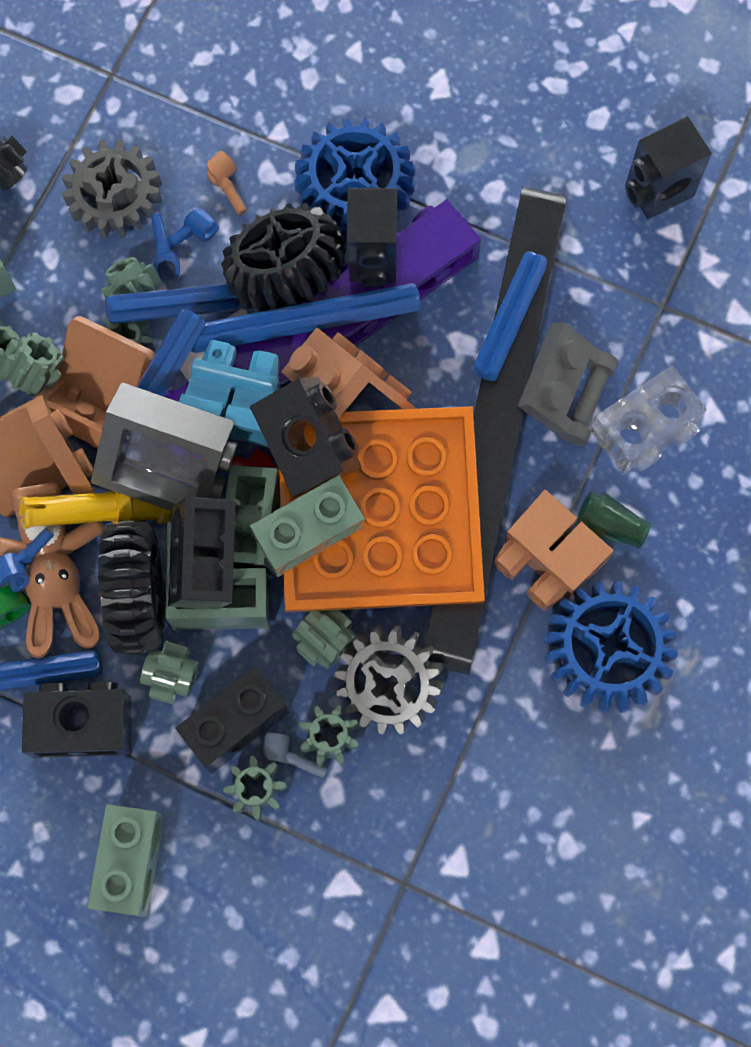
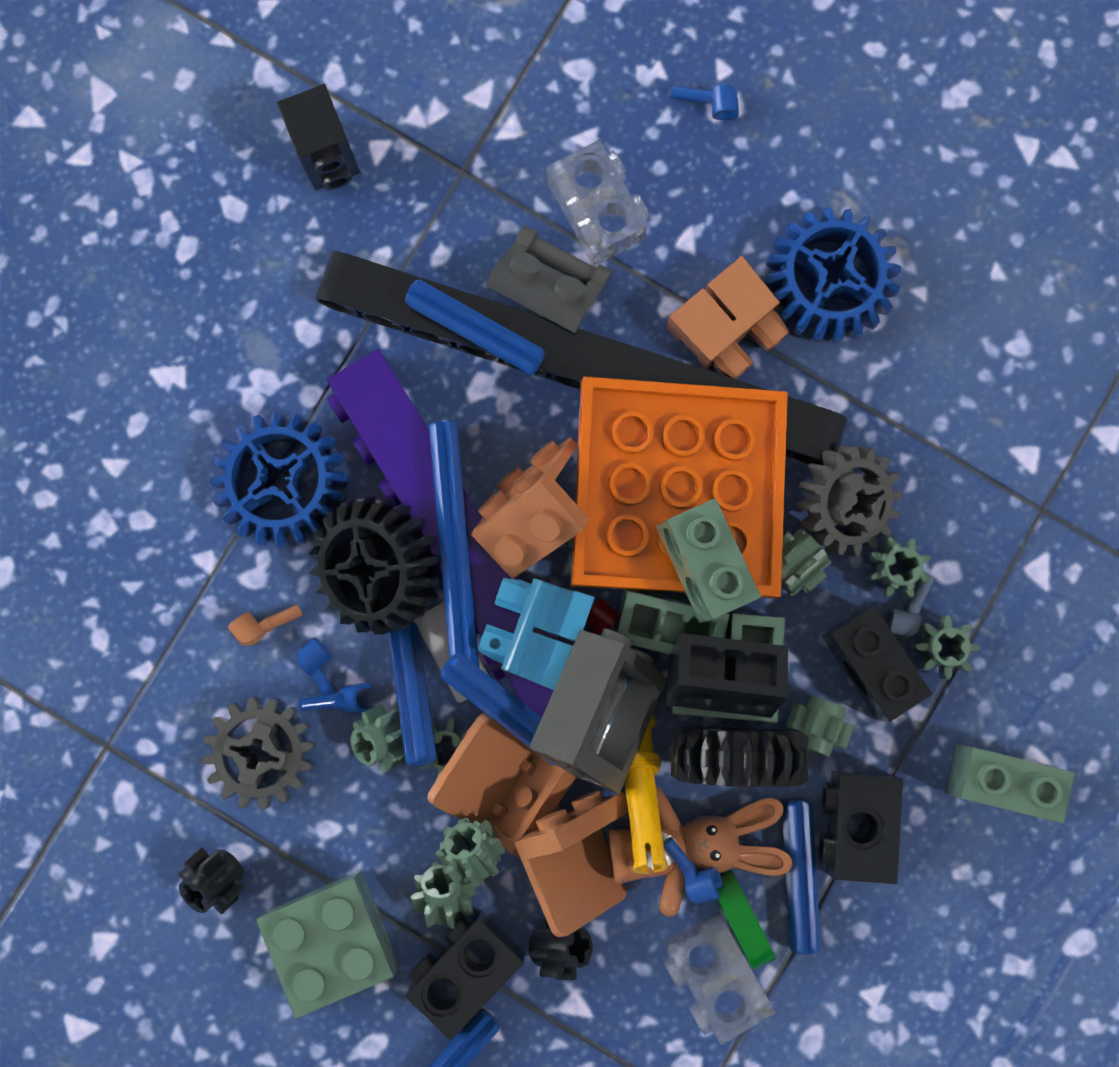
camera: 85 degrees left, 10 degrees up
(282, 423) = (643, 557): black brick -> none
(372, 236) = (381, 459): black brick -> none
(612, 520) = (699, 256): clear green cone -> none

